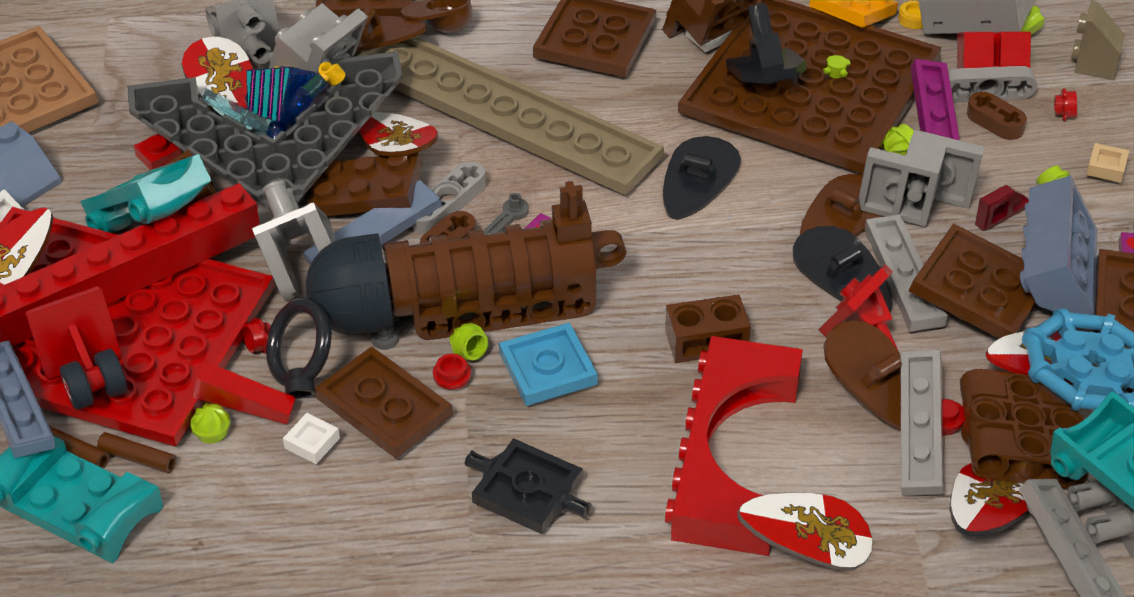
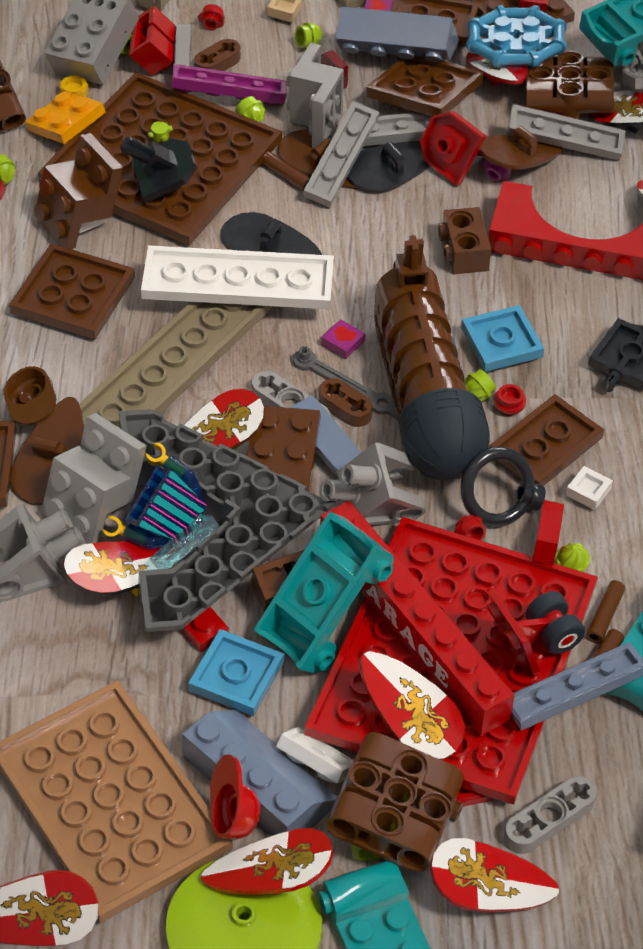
camera: 90 degrees left, 5 degrees up
(95, 168) = (236, 672): none -> dark azure plate
(607, 132) = (238, 277): none -> white plate
(810, 180) = (285, 170): none -> reddish brown piece
(832, 210) = (341, 154): none -> light grey plate

